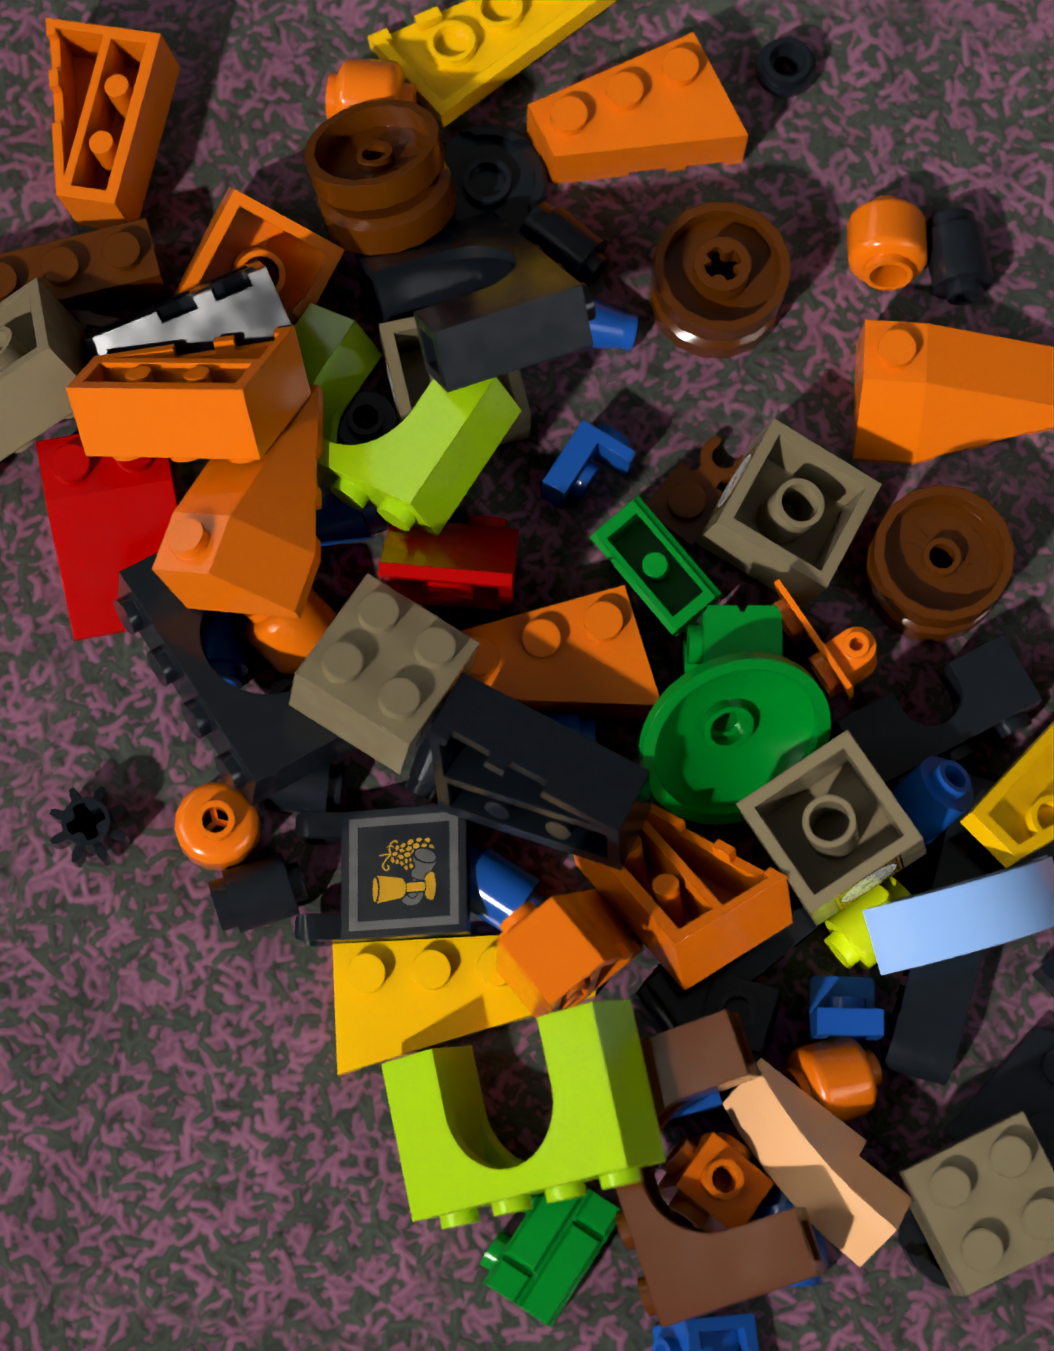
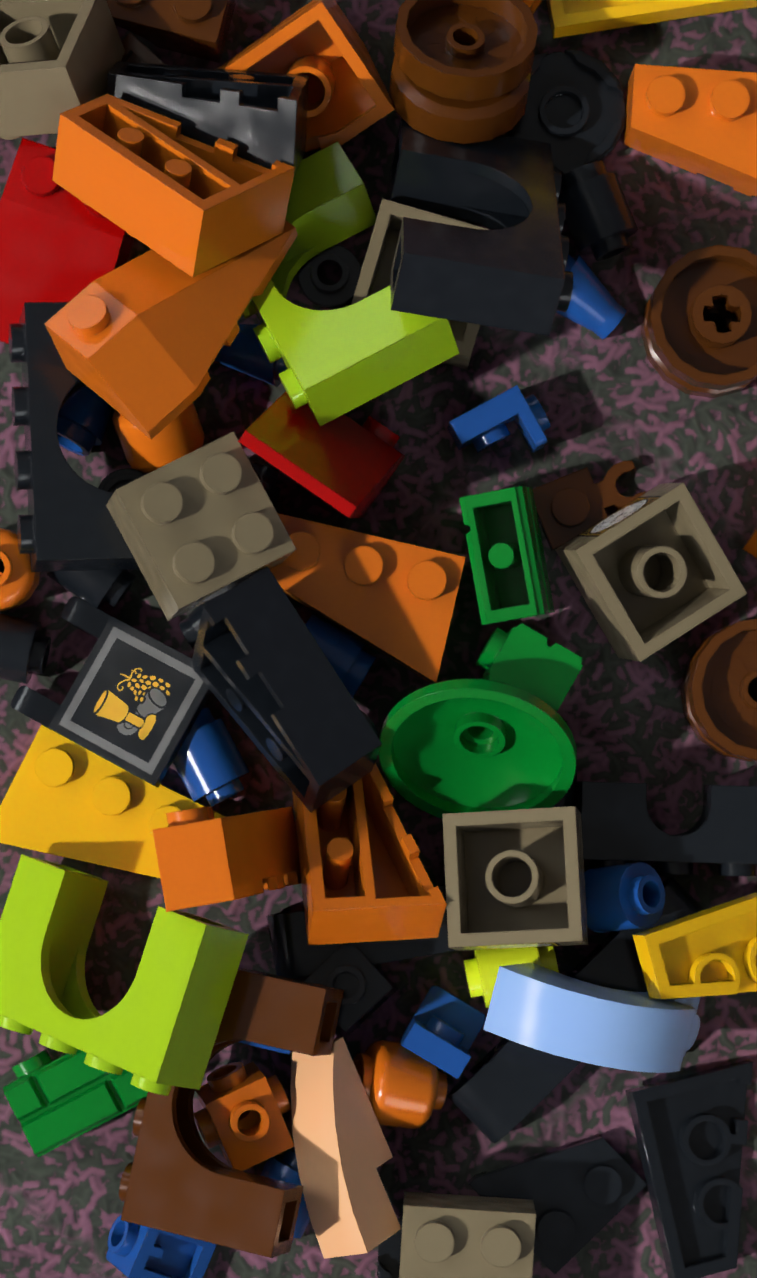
camera: 25 degrees right, 10 degrees up
(837, 663) = (610, 731): orange hinge -> none

